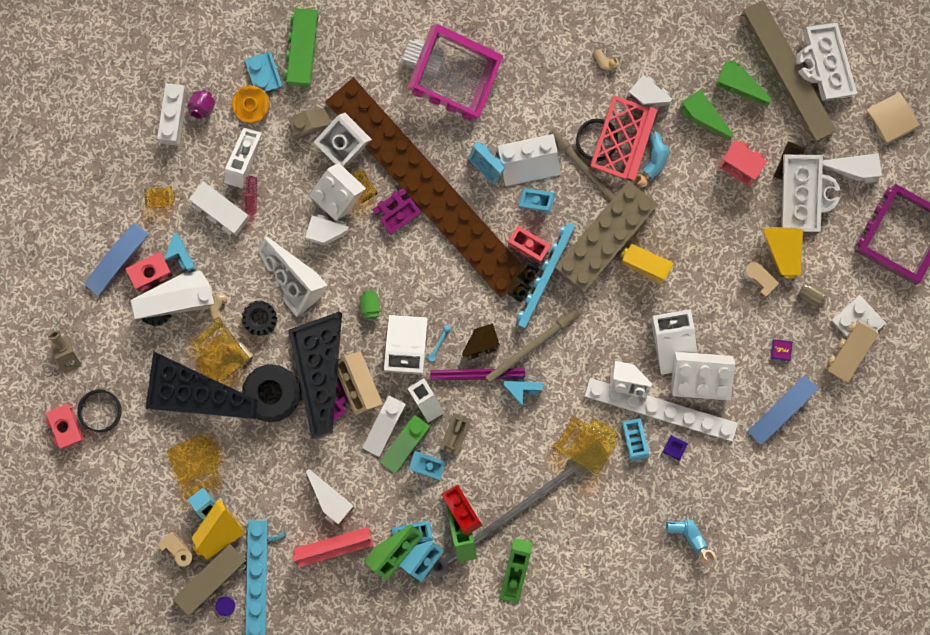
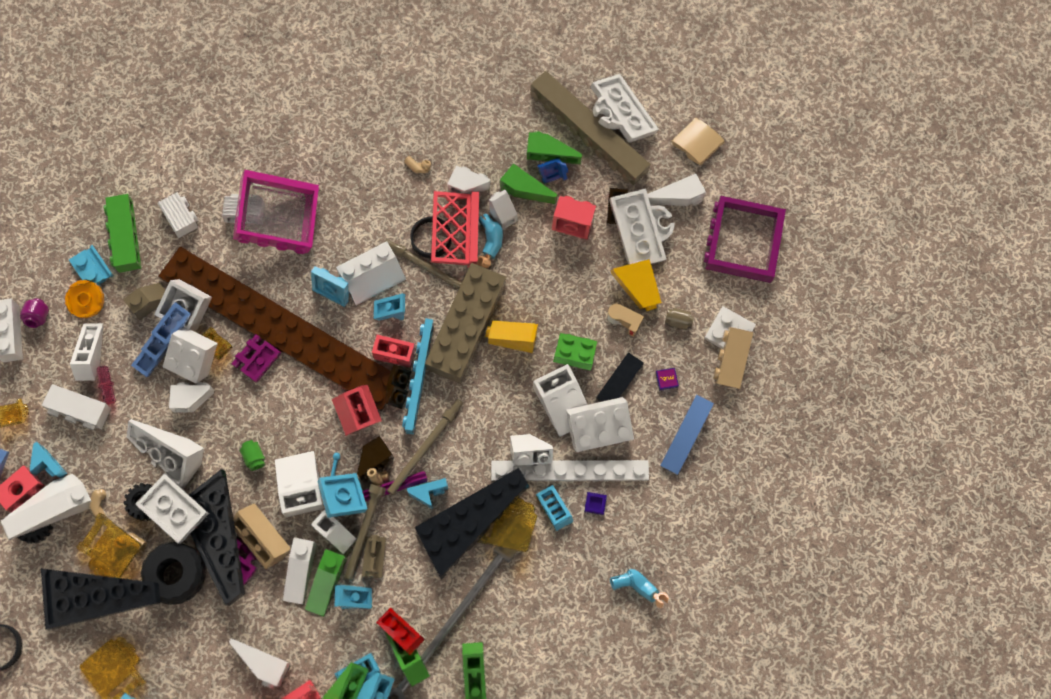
camera: 20 degrees left, 10 degrees down
(285, 334) = (172, 509): none -> white plate
(314, 168) = (158, 343): none -> medium blue slope
(359, 44) = (178, 215): none -> white brick
(443, 369) = (342, 495): none -> medium azure plate
(474, 376) = (376, 493): none -> dark tan piece
(478, 292) = (356, 409): none -> coral slope
(480, 361) = (377, 478): none -> tan arm
(546, 430) = (465, 523): none -> black wing
(675, 134) = (502, 209): none -> white slope
(701, 297) = (575, 351): none -> bright green plate
(736, 336) = (620, 378): none -> black tile
(737, 106) = (552, 170): none -> blue bracket

